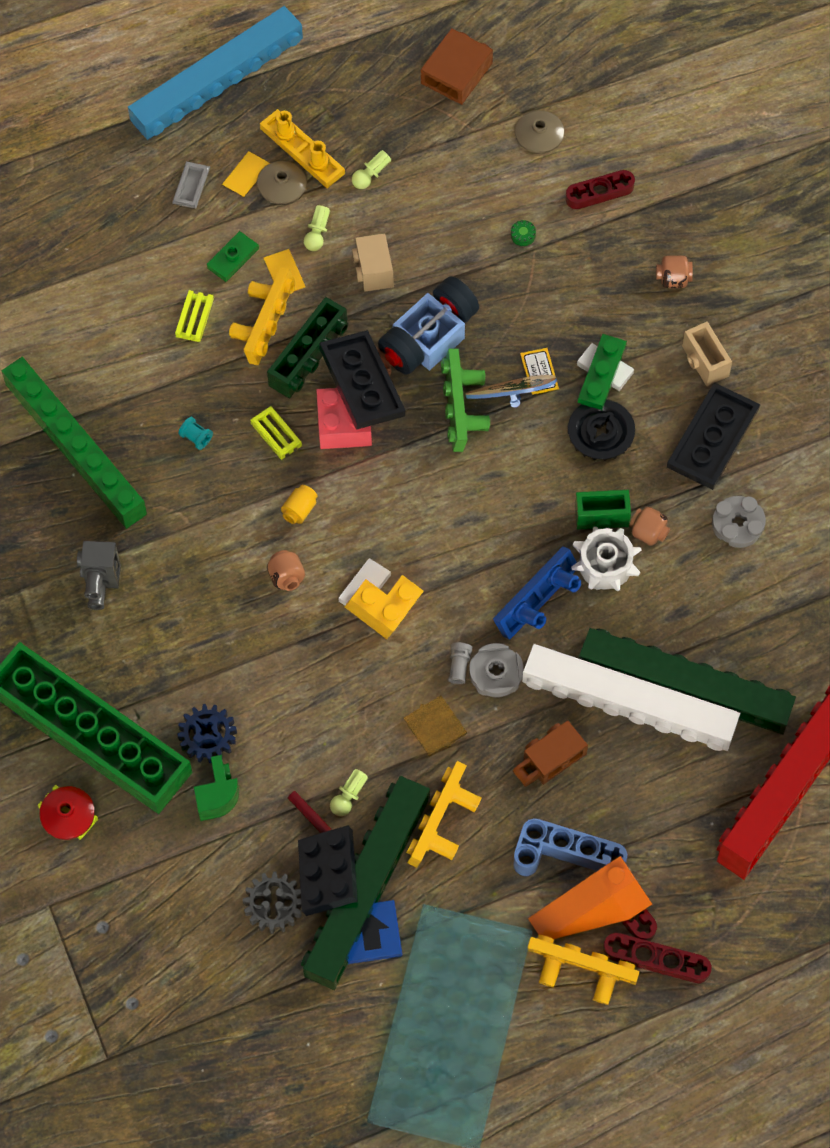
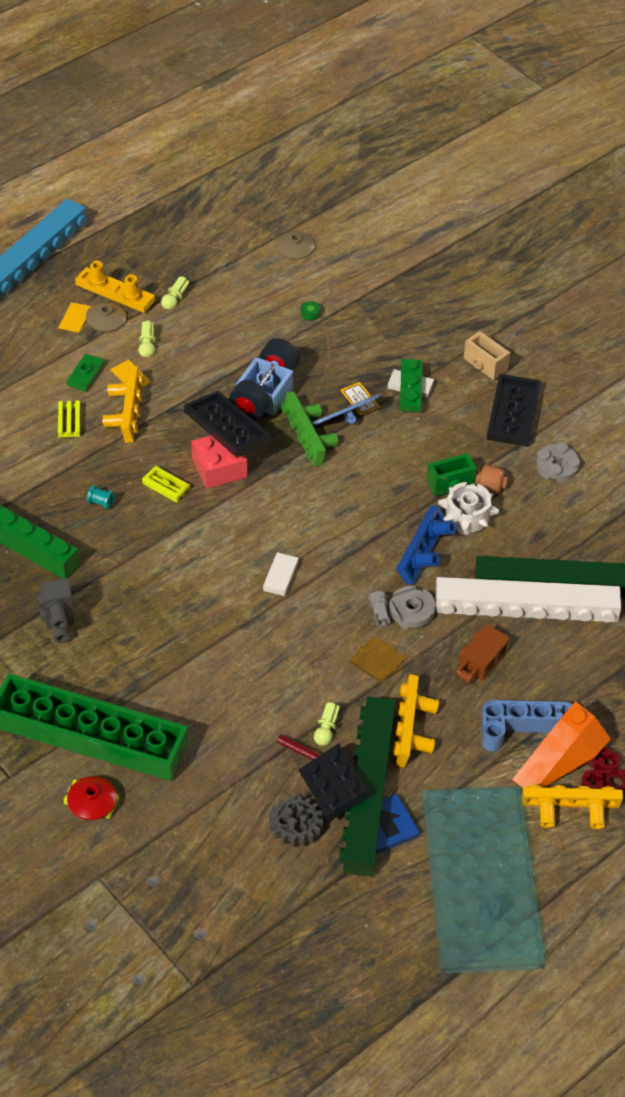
camera: 20 degrees left, 15 degrees down
(191, 185) = (33, 332): light grey tile -> none
(207, 721) = (192, 708): dark blue gear -> none
(218, 797) = (218, 751): green brick -> none
(285, 570) = (212, 575): nougat head -> none
(299, 504) = (205, 527): yellow brick -> none
(303, 353) = (171, 418): dark green brick -> none
(374, 262) = (202, 350): tan brick -> none
(382, 610) = (301, 582): yellow brick -> none
(456, 66) = (216, 214): dark orange brick -> none
(595, 198) = (347, 277): dark red beam -> none
(619, 430) = (438, 430): black gear -> none
(674, 271) = (437, 310): nougat head -> none

